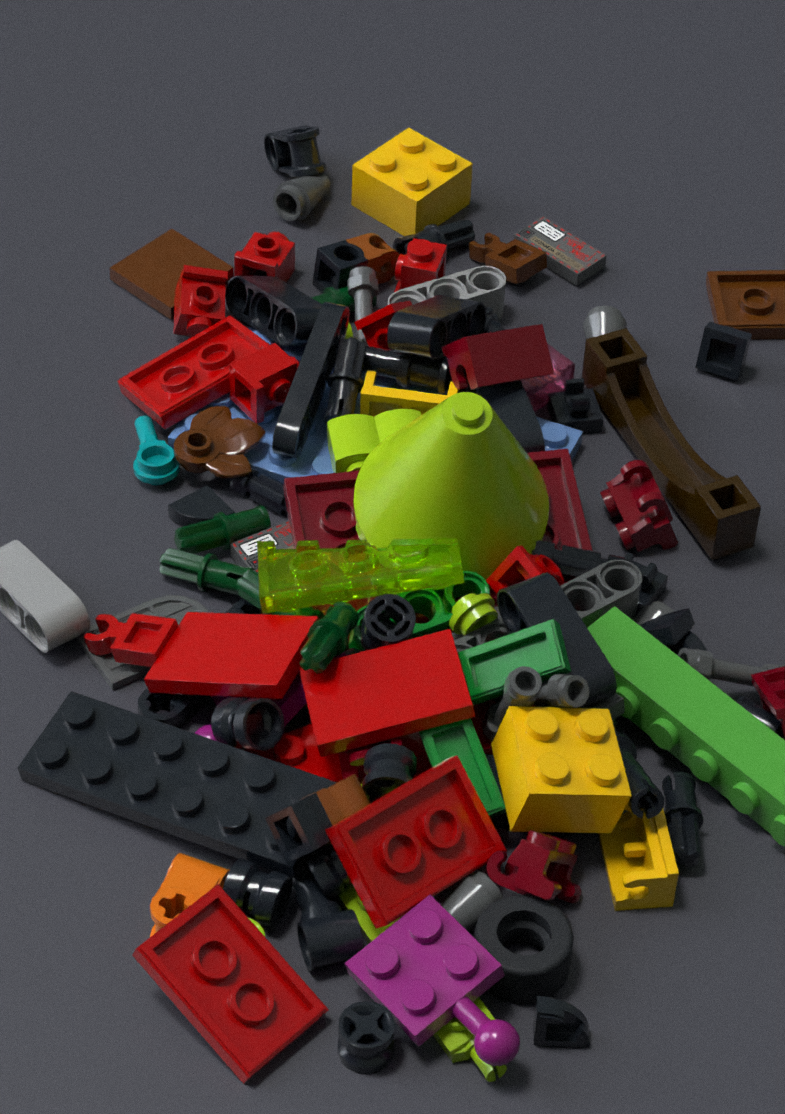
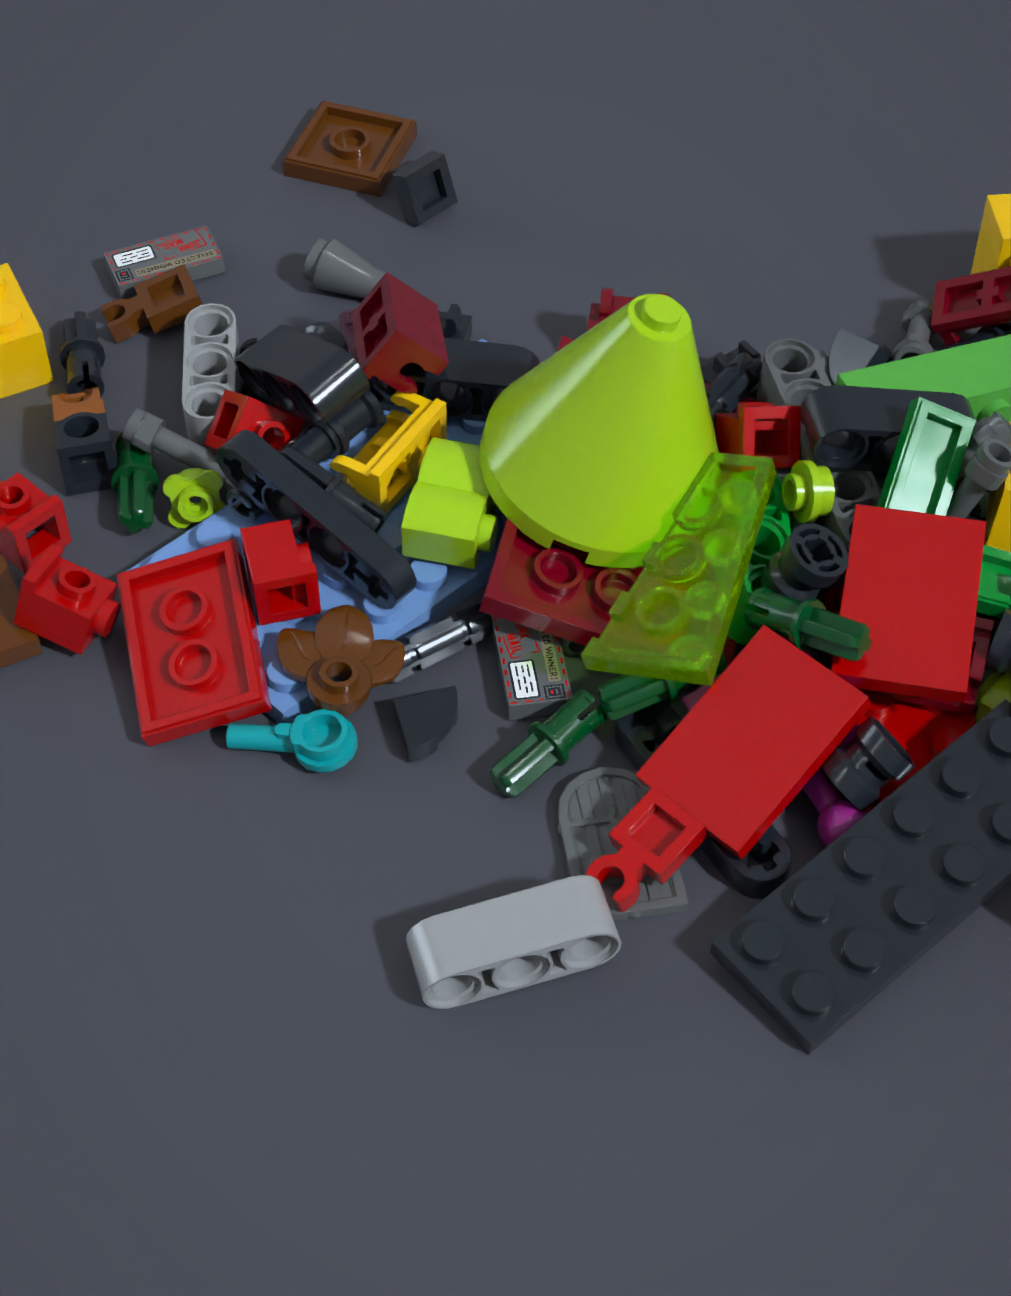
camera: 65 degrees left, 5 degrees up
(221, 530) = (482, 706): dark green axle -> none
(273, 308) = (158, 502): black beam -> none
(421, 263) = (145, 377): red brick -> none
(713, 507) = (681, 262): dark brown arch -> none

